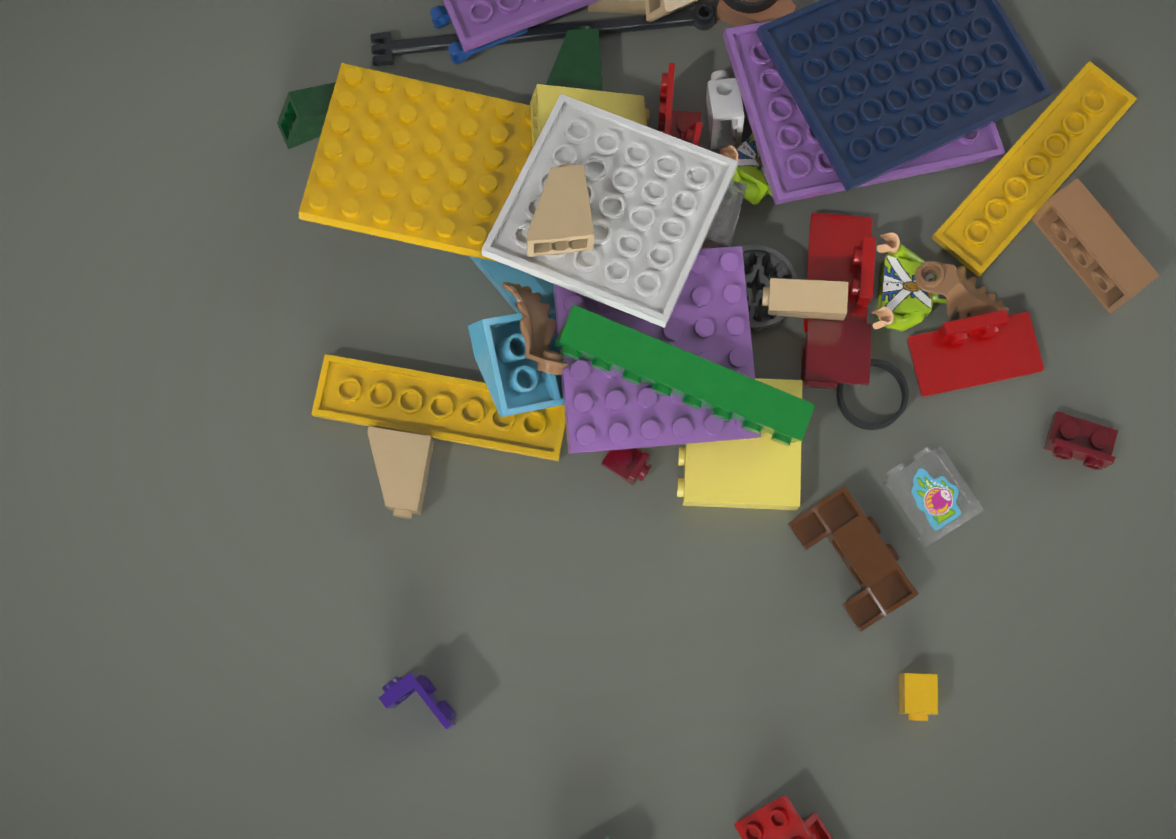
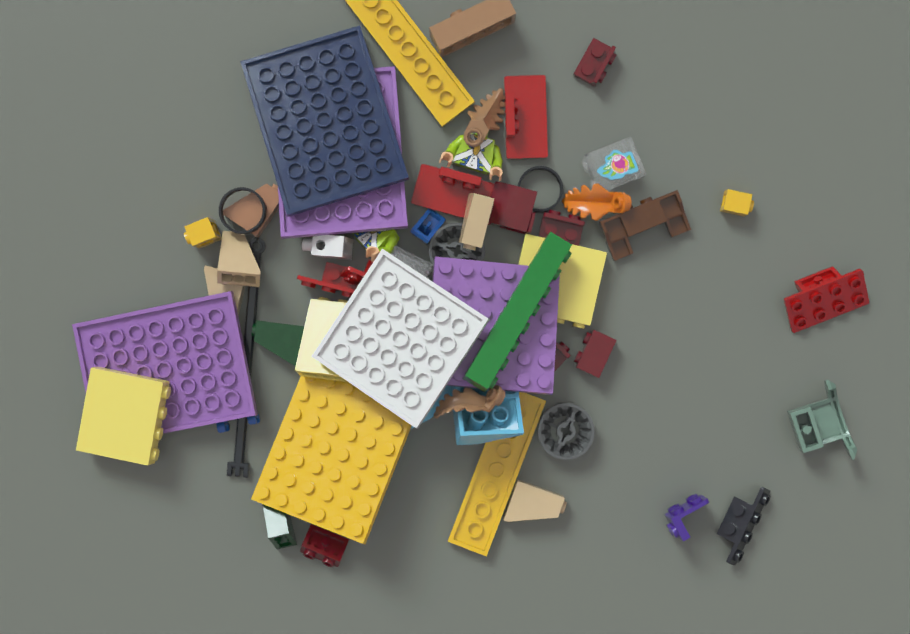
camera: 85 degrees left, 10 degrees up
(288, 182) = (323, 546): none -> dark red bracket
(424, 794) = (740, 521): none -> black bracket
(490, 489) = (558, 448): none -> dark grey gear
(562, 214) = (404, 371): tan slope -> none
(642, 518) = (595, 353): none -> dark red brick
(783, 238) = (427, 226): none -> blue slope
(821, 441) = (567, 228): none -> dark red bracket
(873, 476) = (596, 202): none -> orange plant

